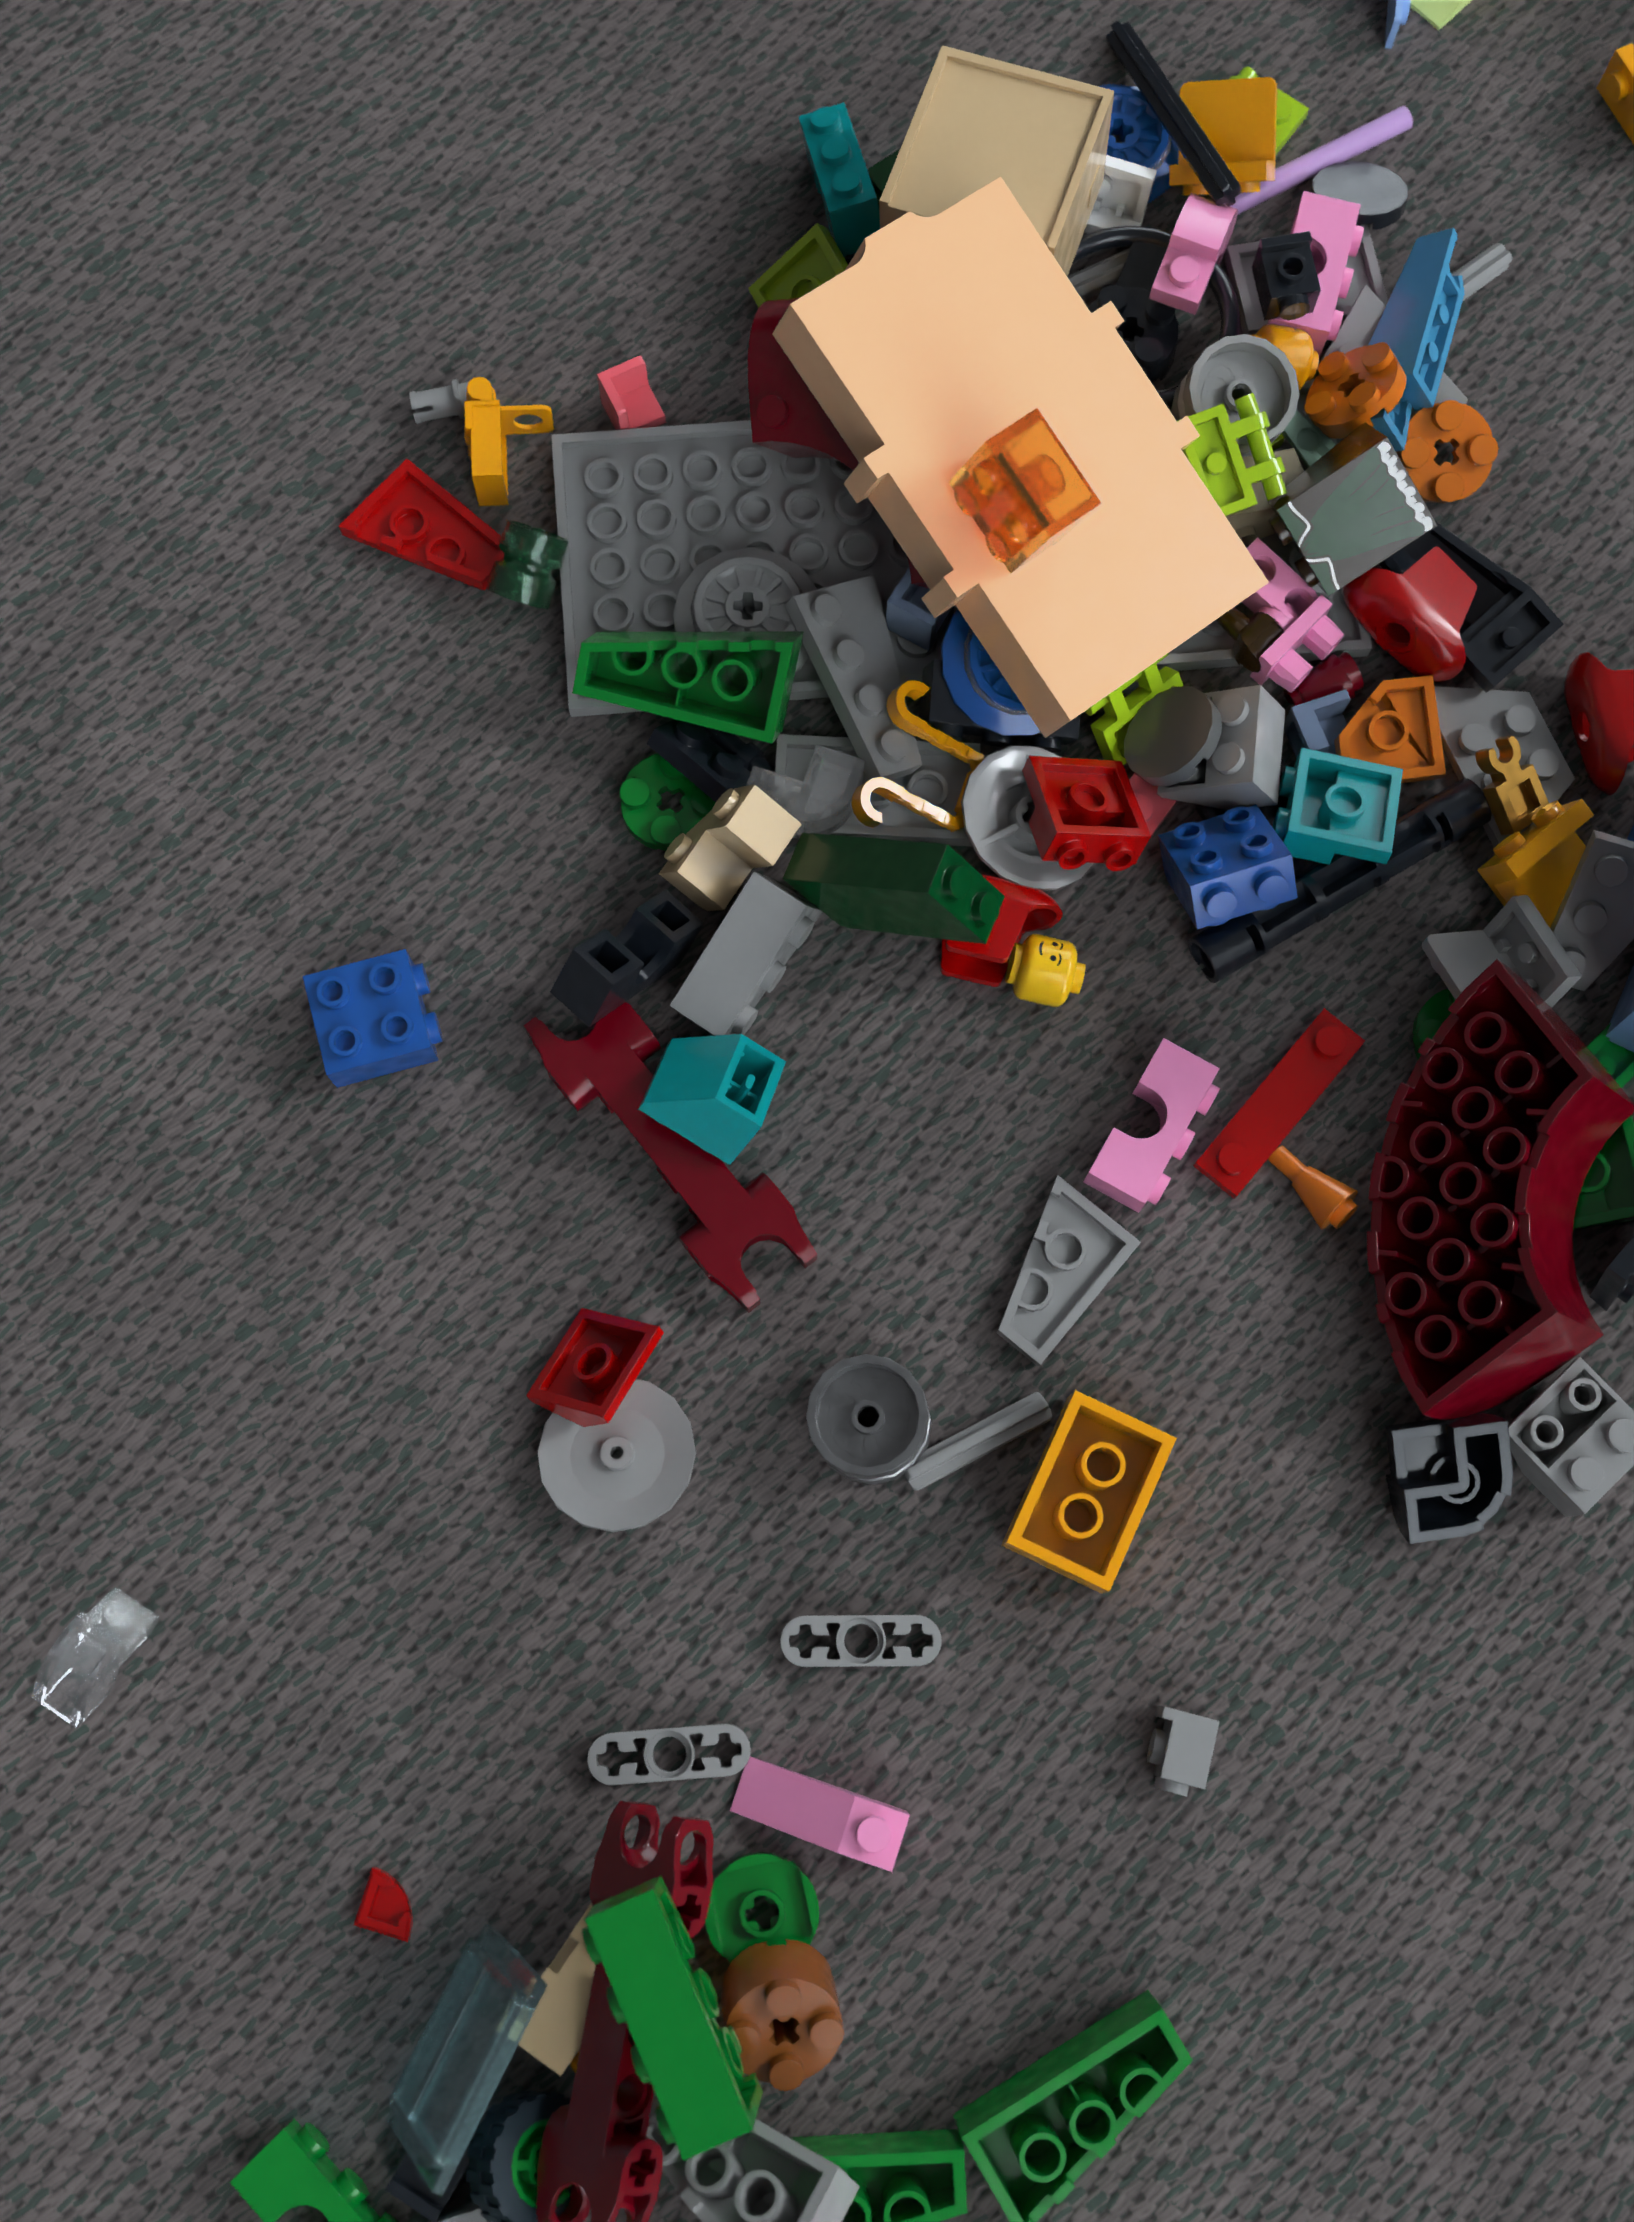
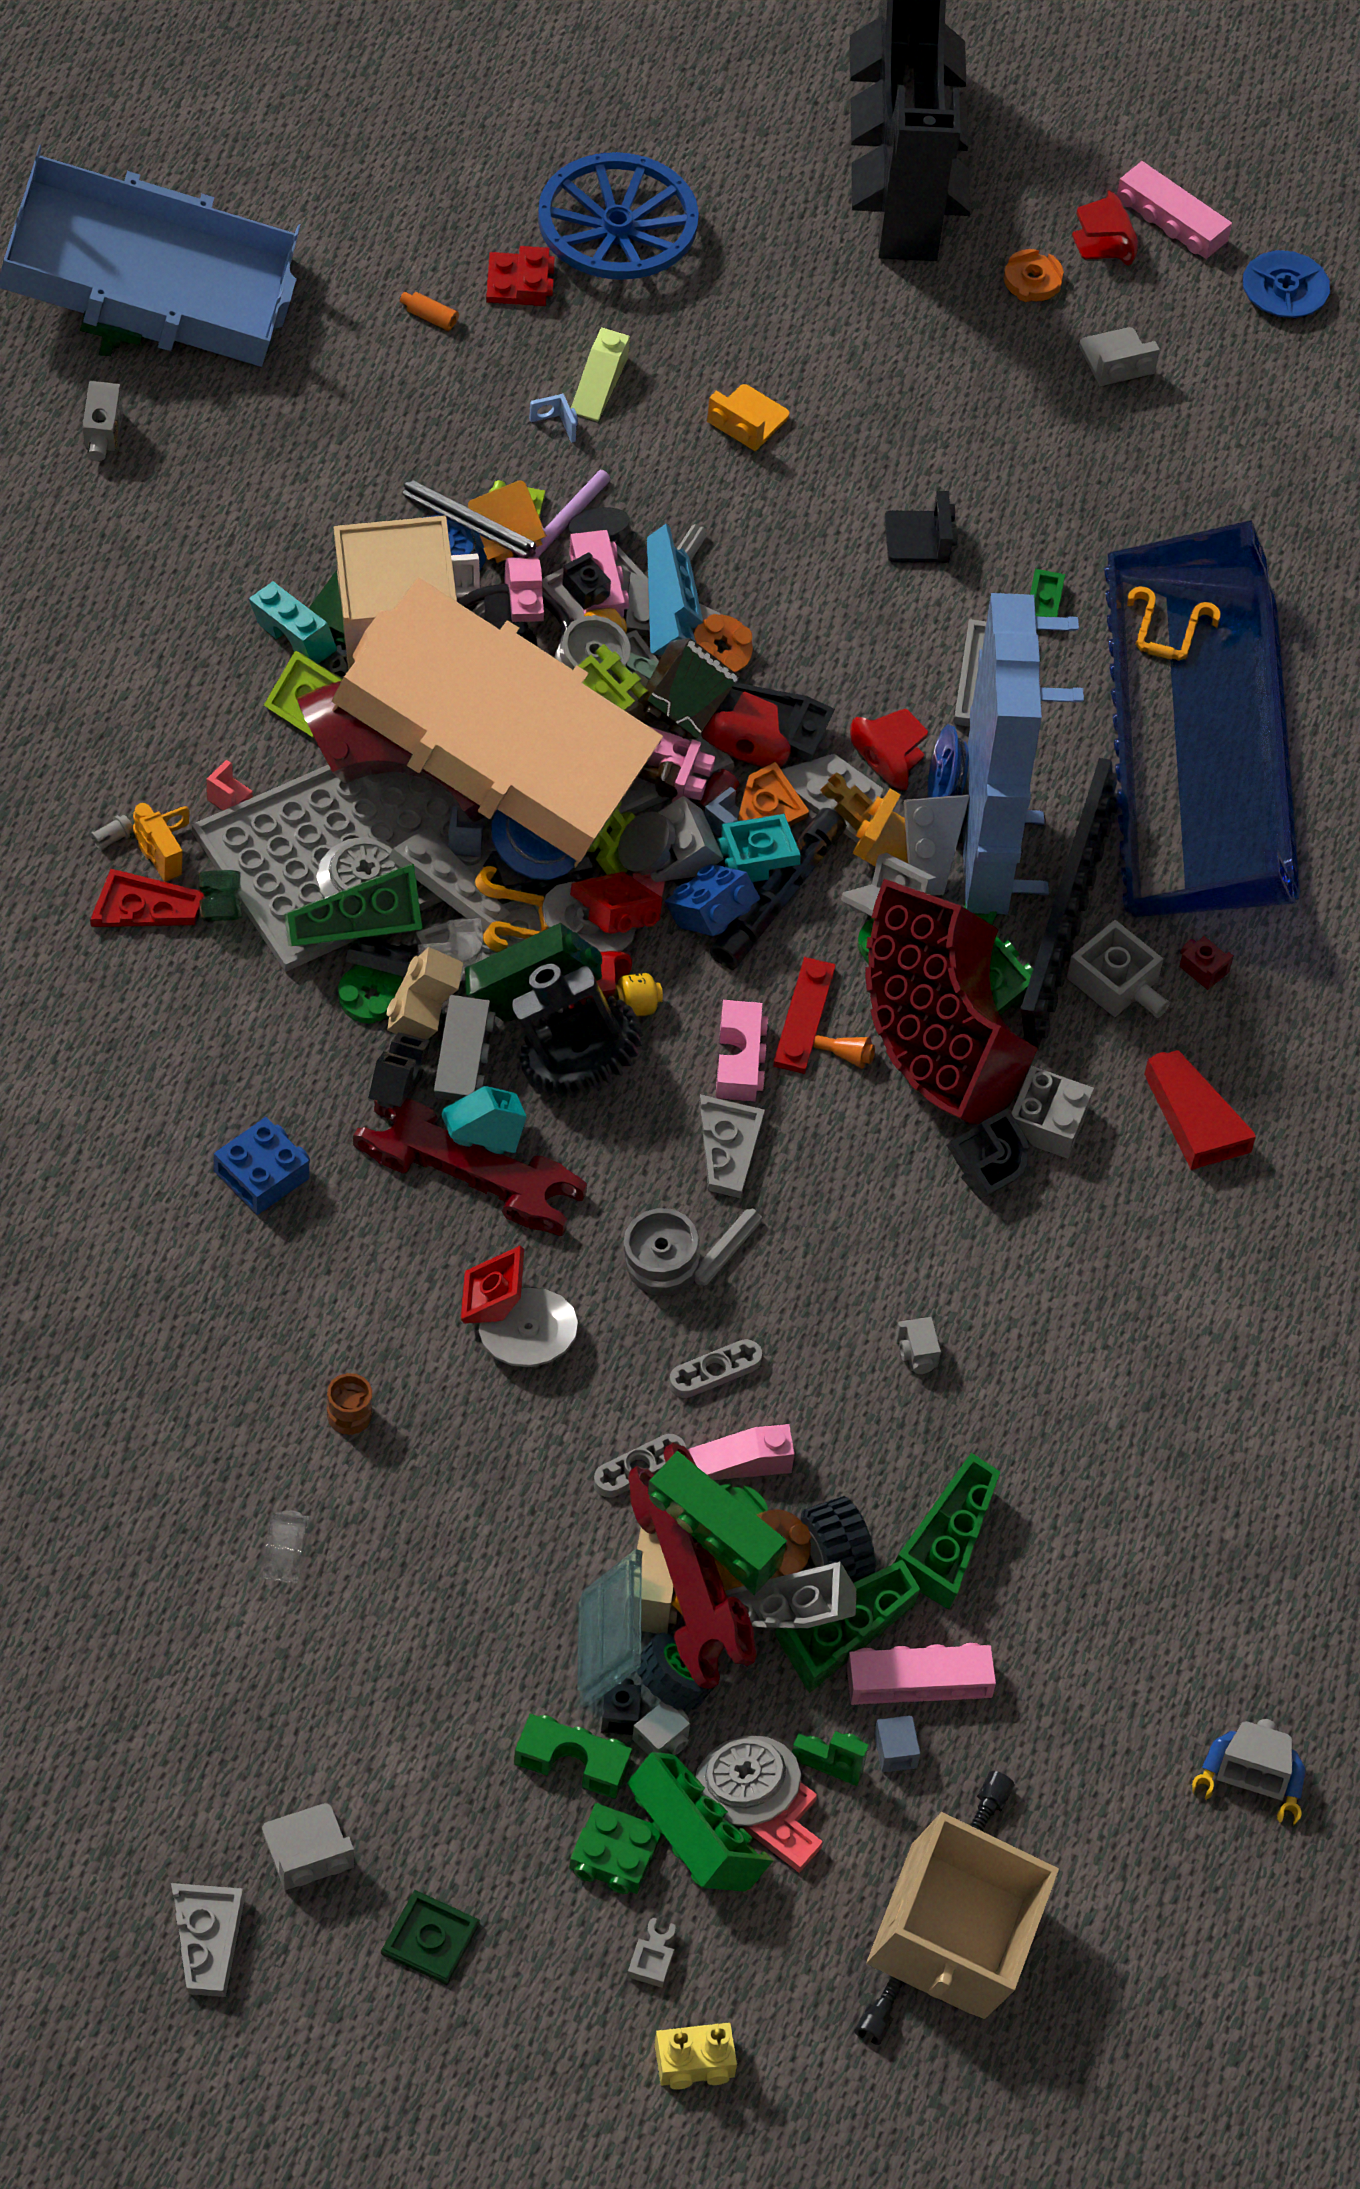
camera: 30 degrees left, 20 degrees down
(294, 1466) = (349, 1403): none -> dark orange wheel
(385, 1907) = (522, 1605): red tile -> none
(882, 2065) = (840, 1536): none -> black wheel
(908, 1014) = (582, 1042): none -> black piece
(1023, 491) = (516, 725): clear orange brick -> none
(1089, 1492) = (801, 1239): light orange brick -> none
(1354, 388) = (657, 616): orange plate -> none

